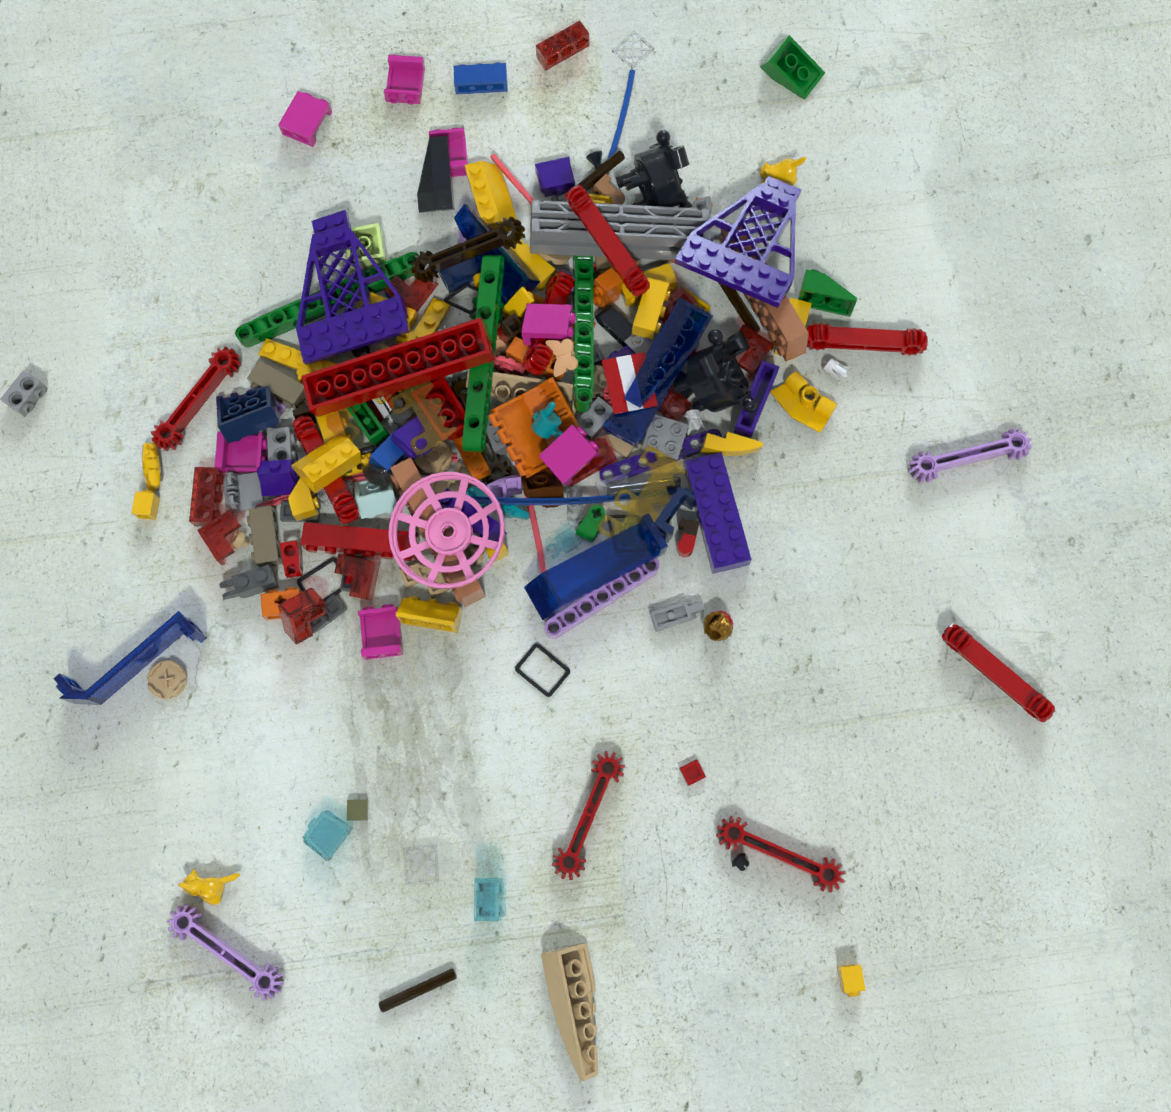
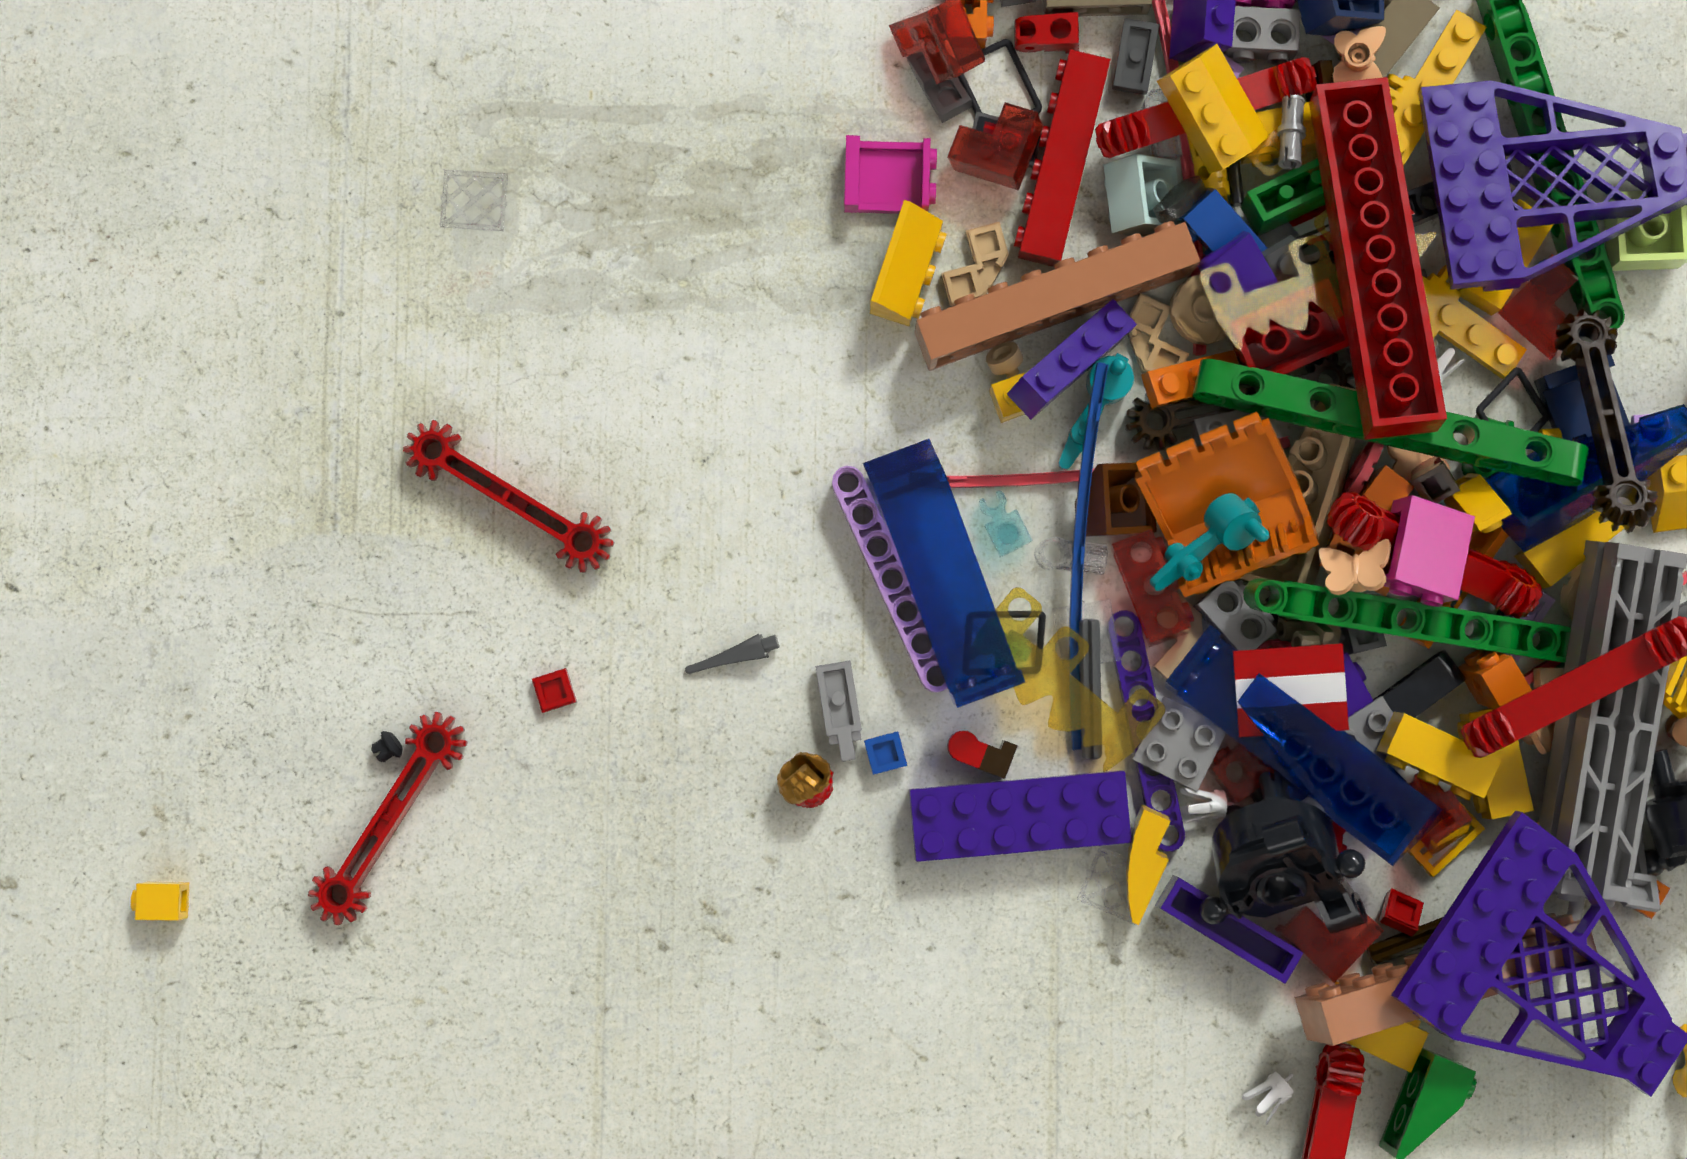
camera: 95 degrees right, 10 degrees up
(290, 396) = (1358, 54): none -> light nougat animal
(303, 502) = (1147, 59): yellow slope -> none
(326, 834) = (548, 44): clear light blue torso -> none
(334, 422) = (1291, 132): none -> light grey pin
(357, 810) = (583, 102): olive tile -> none
(417, 990) = (268, 169): dark brown axle -> none
(439, 522) = (1049, 288): bright pink dish -> none
(488, 899) = (390, 304): clear light blue piece -> none
(506, 486) = (1122, 429): lavender slope -> none
(531, 681) = (786, 409): black piece -> none
(569, 454) = (1164, 556): dark pink panel -> none
(571, 996) = (215, 422): tan wedge -> none
(588, 526) = (1030, 575): green piece -> none
(653, 669) = (750, 649): none -> dark grey piece
(681, 497) = (1040, 734): dark blue panel -> none
(695, 587) = (885, 753): none -> blue plate
(731, 319) = (1401, 912): none -> red tile
(792, 398) = (1189, 1026): yellow panel -> none

